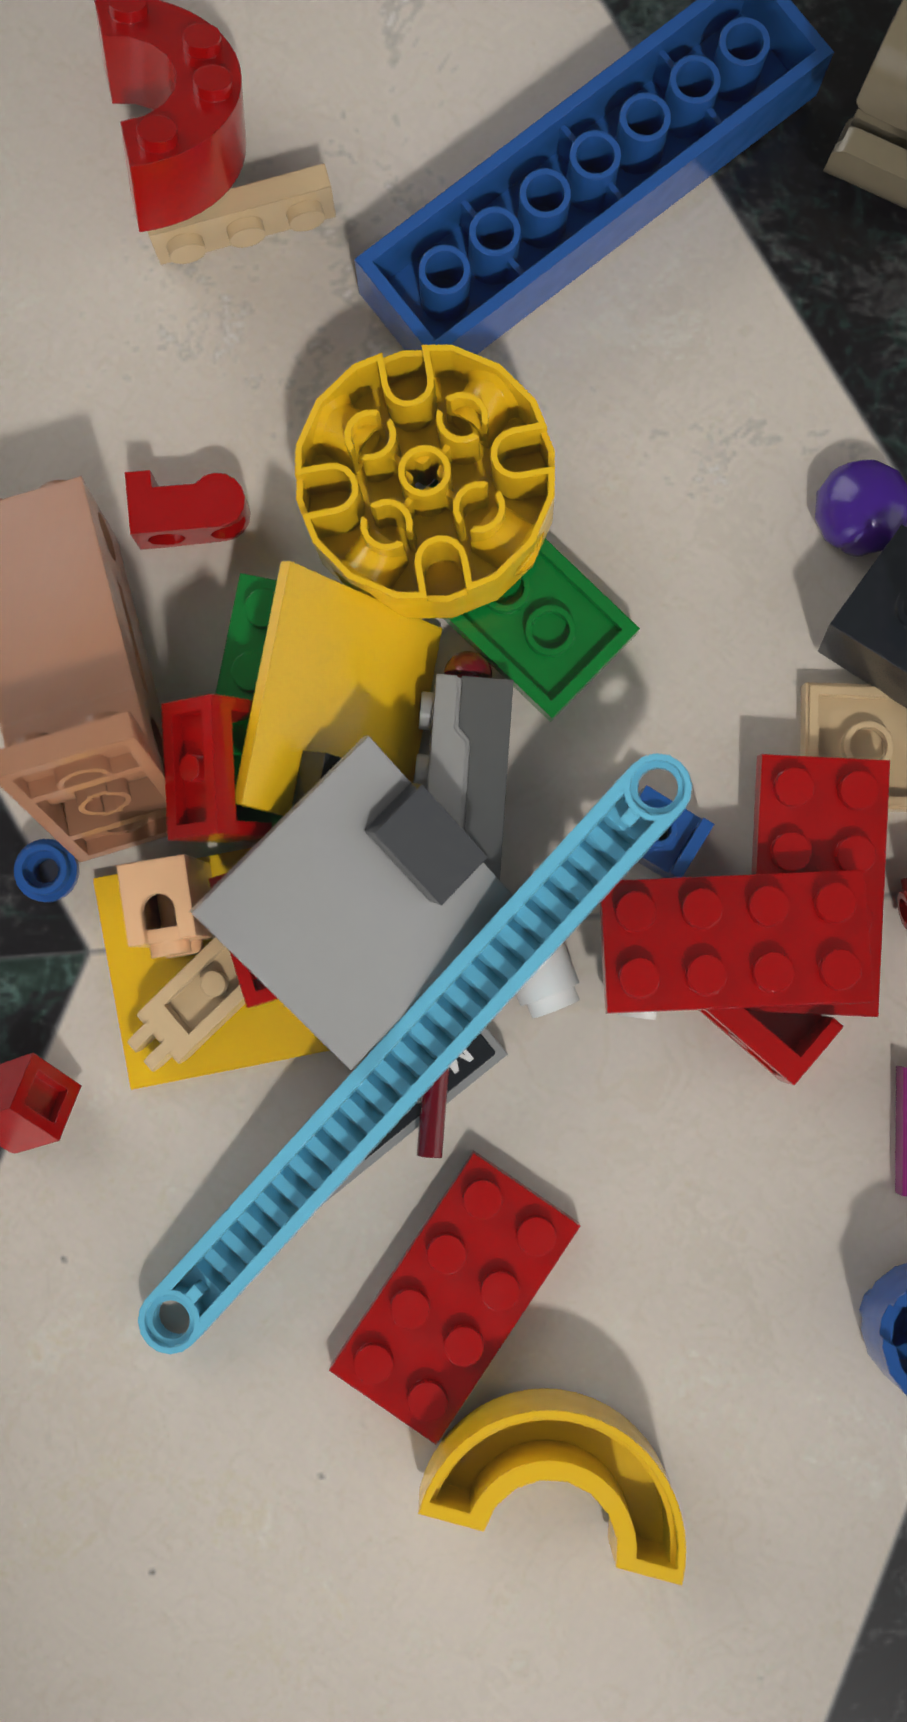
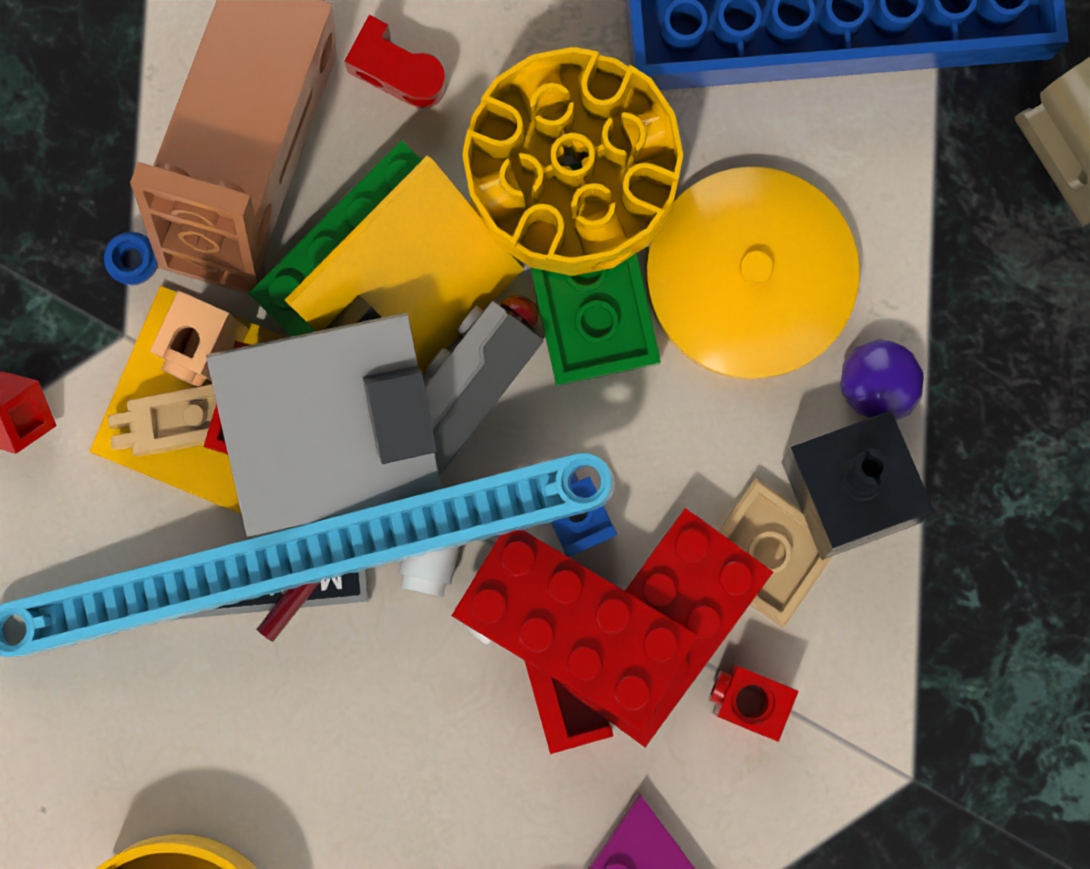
camera: 30 degrees right, 0 degrees up
(202, 770) = (279, 263): red panel -> none
(454, 1297) = (218, 746): red plate -> none
(669, 486) = (753, 273): none -> yellow dish

